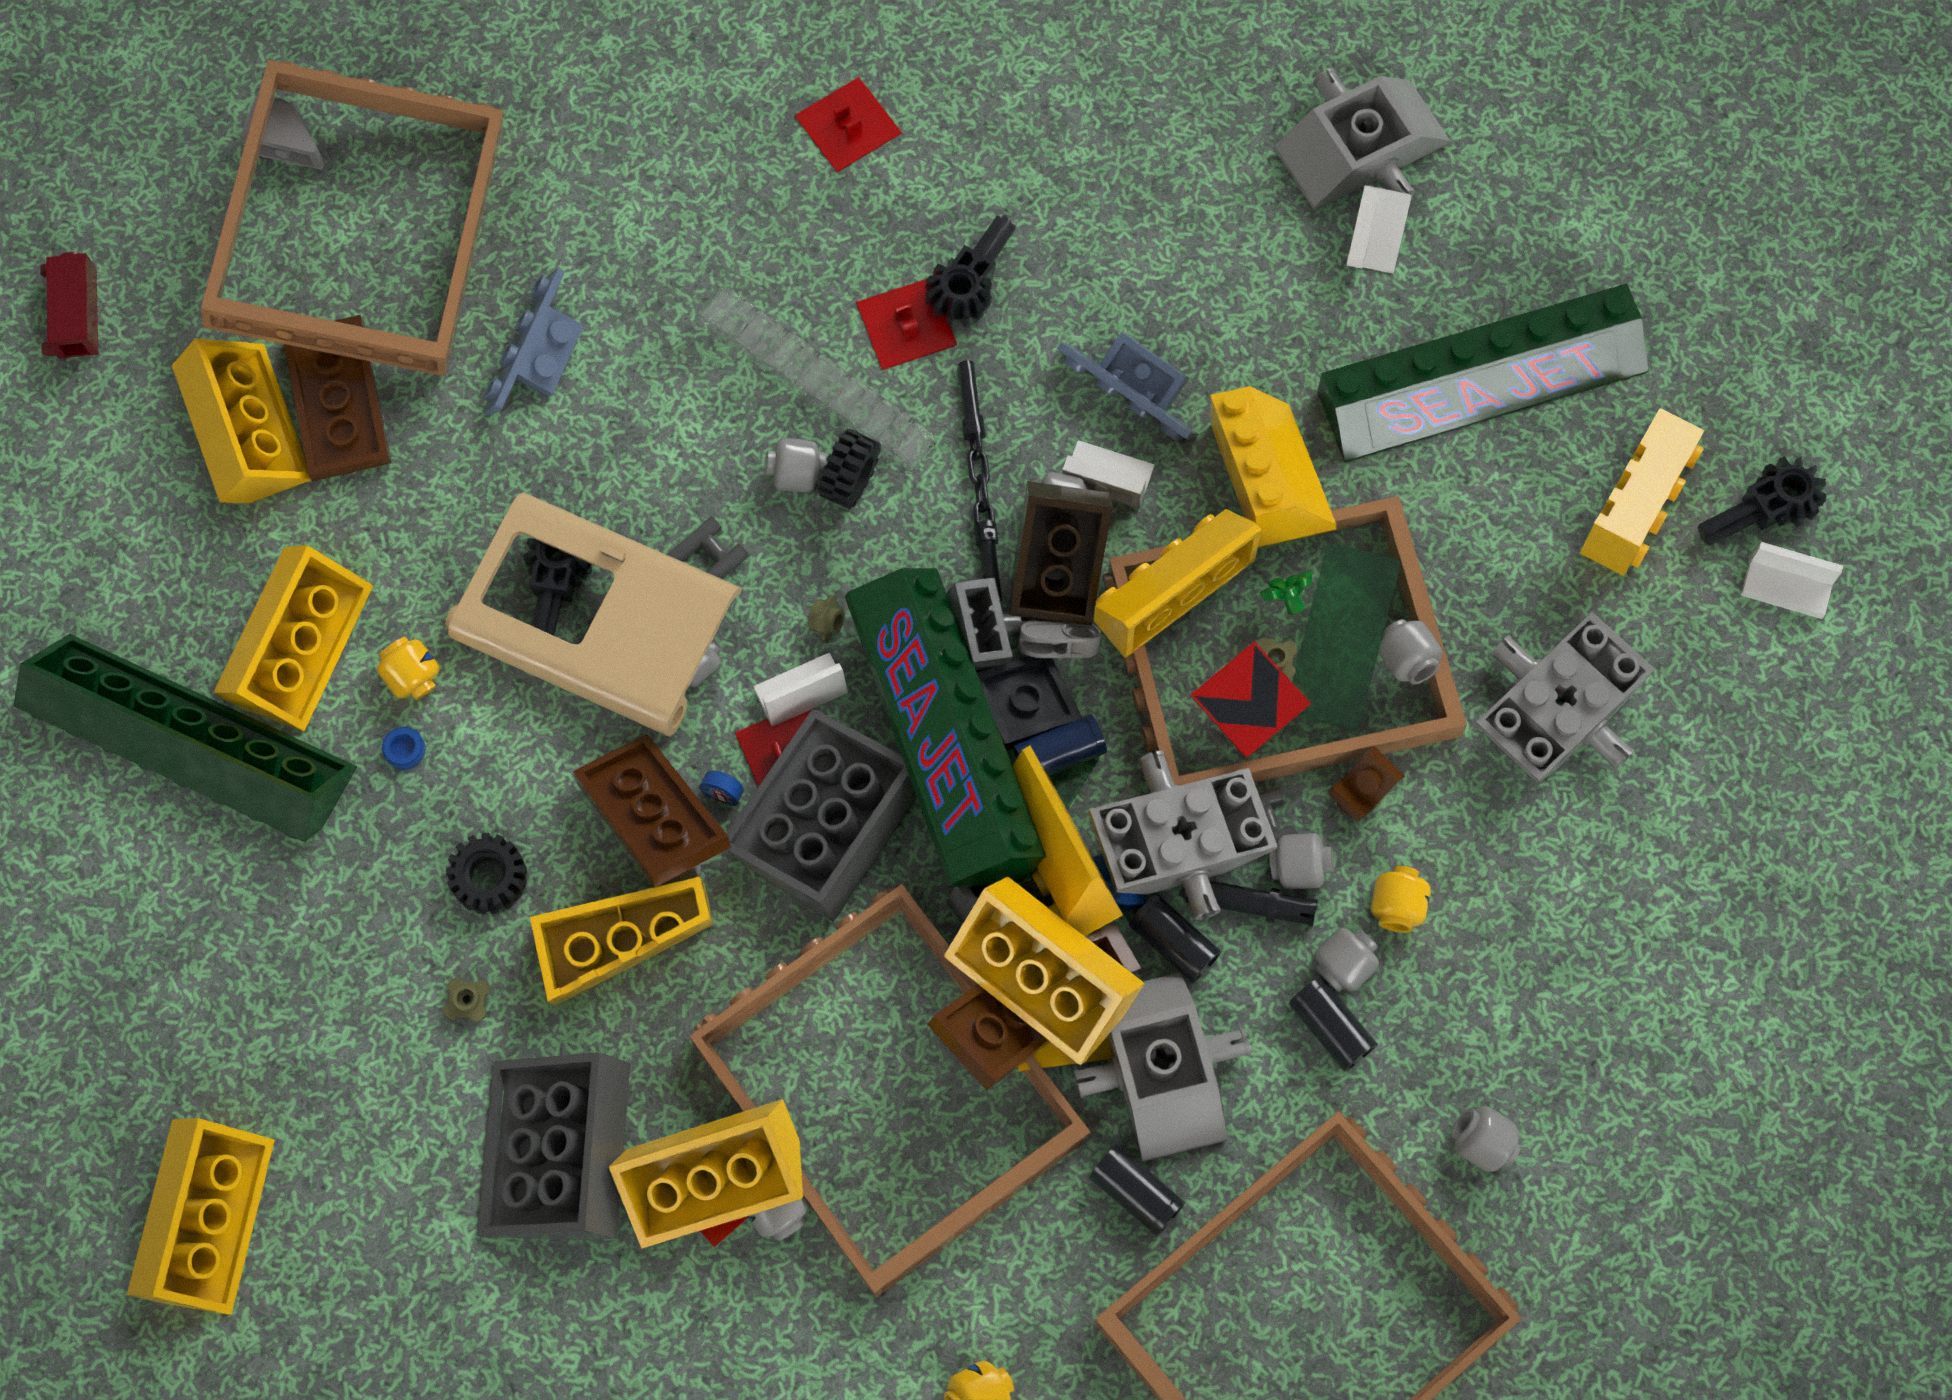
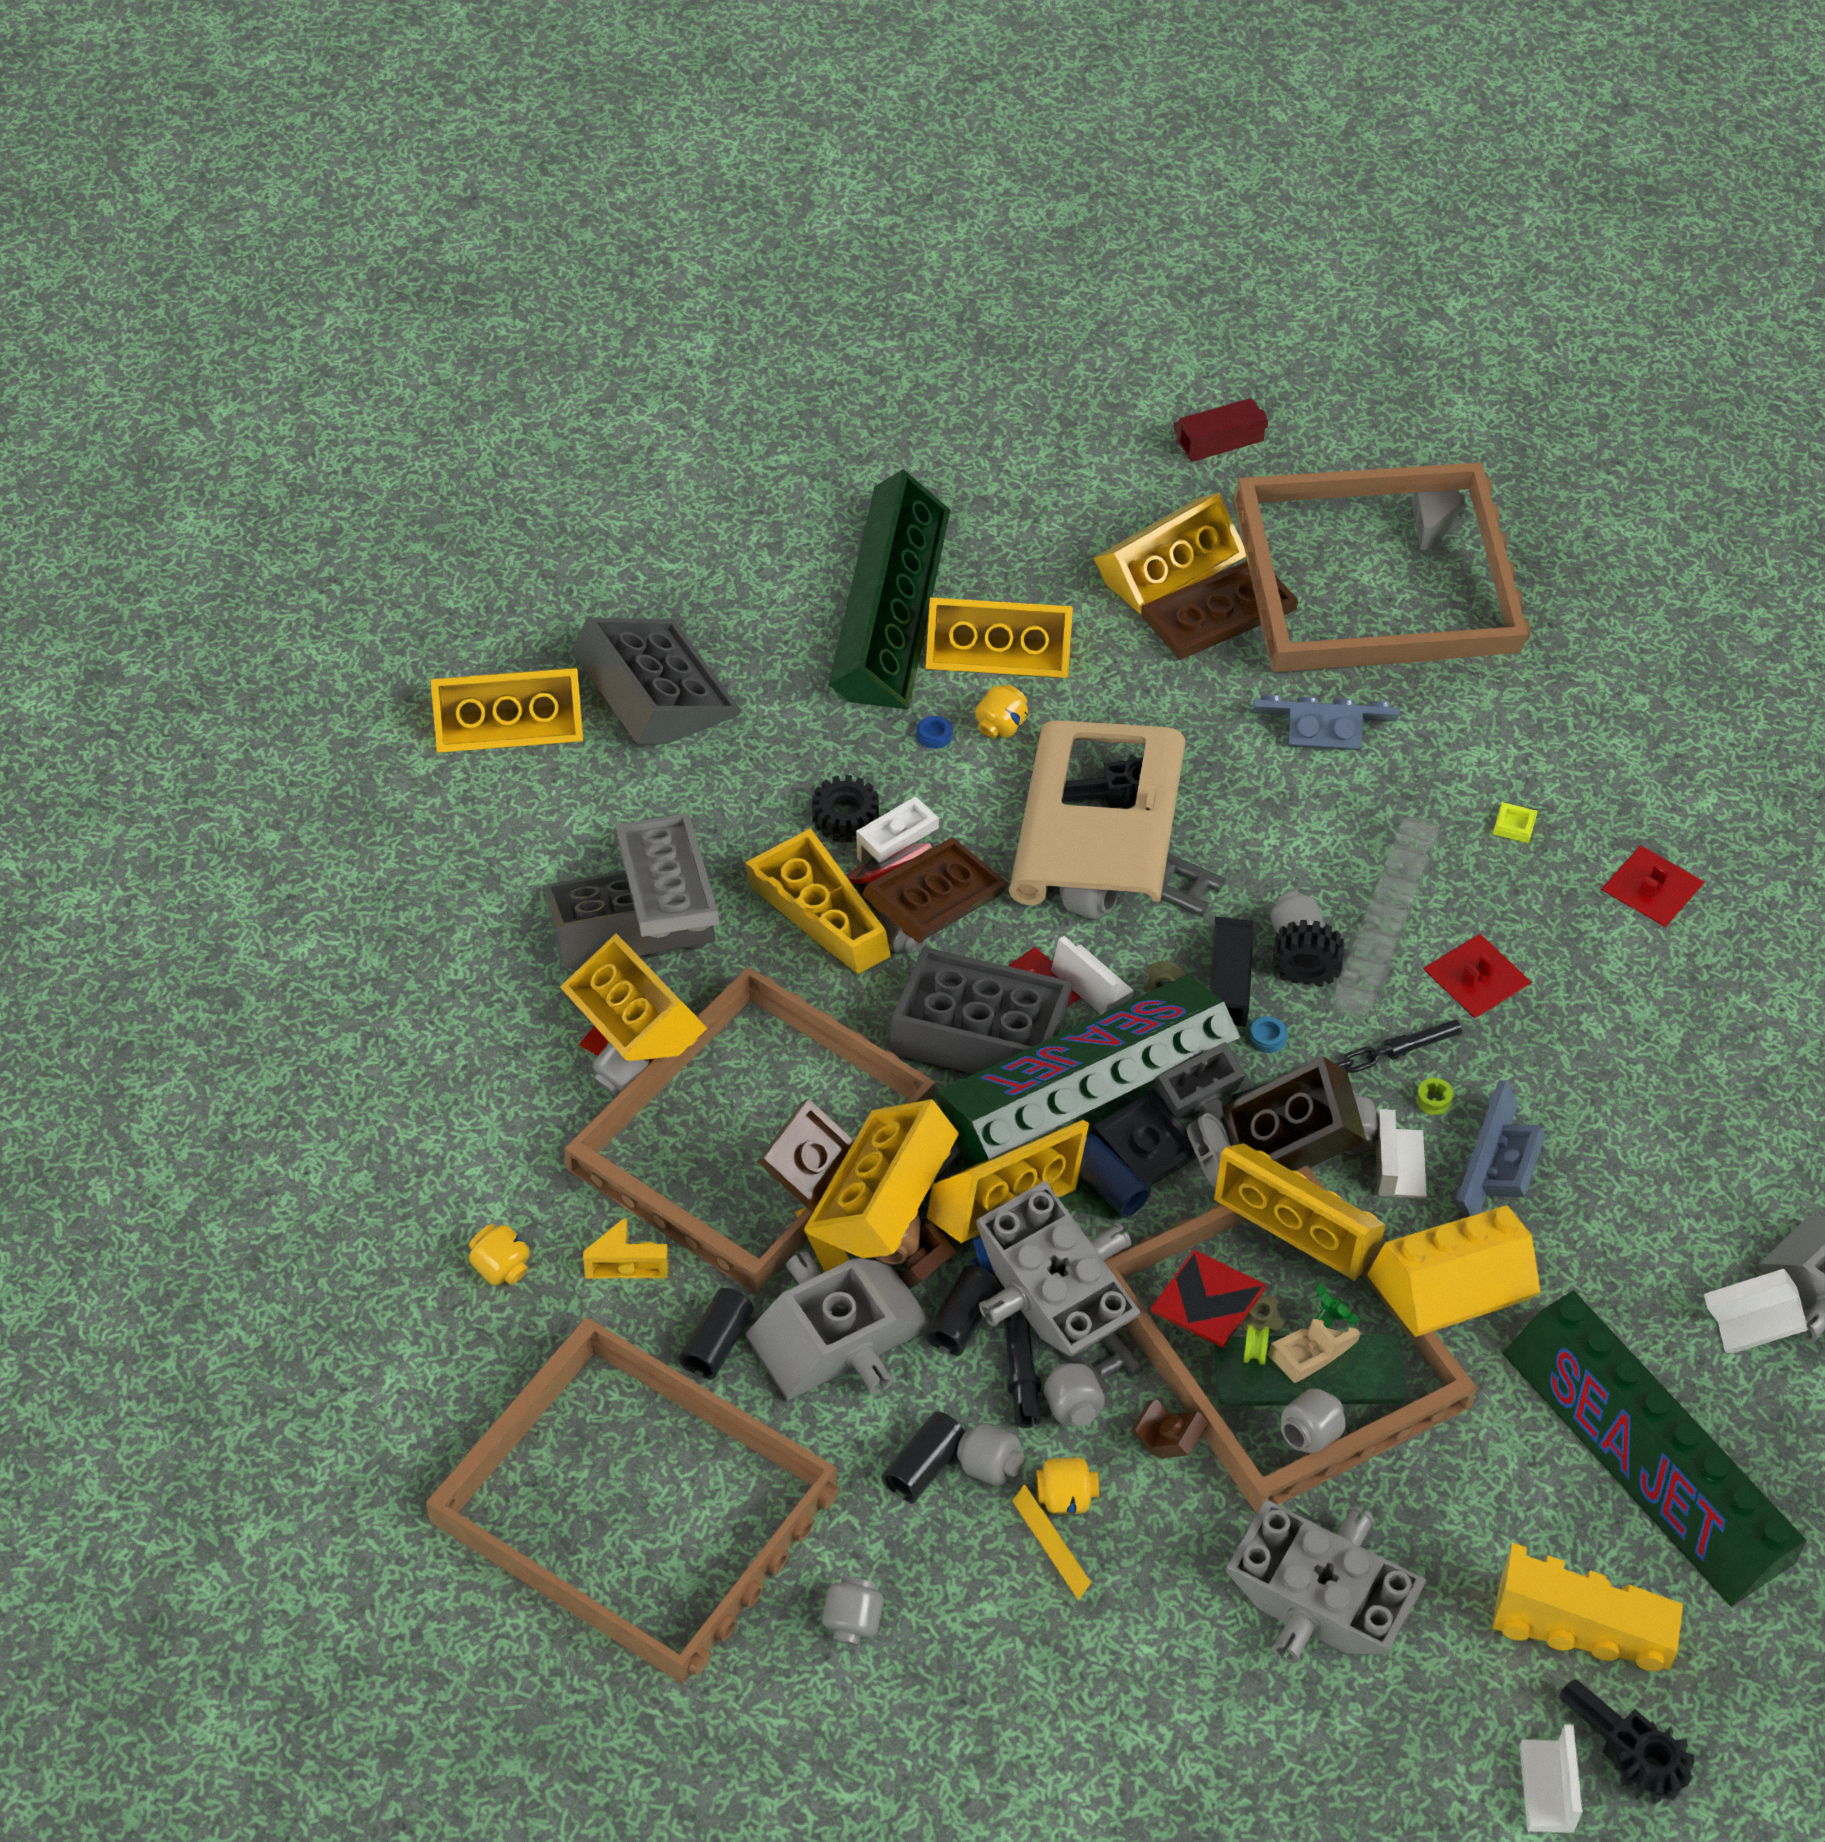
camera: 70 degrees right, 20 degrees down
(217, 1035) = (652, 678): none -> dark grey slope
(475, 1008) = (735, 833): olive plate -> none
(546, 1091) = (666, 876): none -> light grey plate
(551, 826) = (895, 830): none -> white panel
(588, 853) = (873, 869): none -> red piece
(721, 787) = (979, 942): blue tile -> none
(729, 217) = (1515, 822): none -> neon yellow tile
(831, 547) = (1232, 965): none -> black piece
(920, 543) = (1267, 1034): none -> dark azure tile
(970, 273) = (1543, 1003): black gear -> none
(1015, 1271) = (615, 1258): none -> yellow slope
(1051, 405) = (1432, 1106): none -> lime bush
(1317, 673) = (1256, 1344): none -> lime bush
(1329, 627) = (1310, 1349): none -> tan slope
(1450, 932) = (1051, 1542): none -> yellow sticker

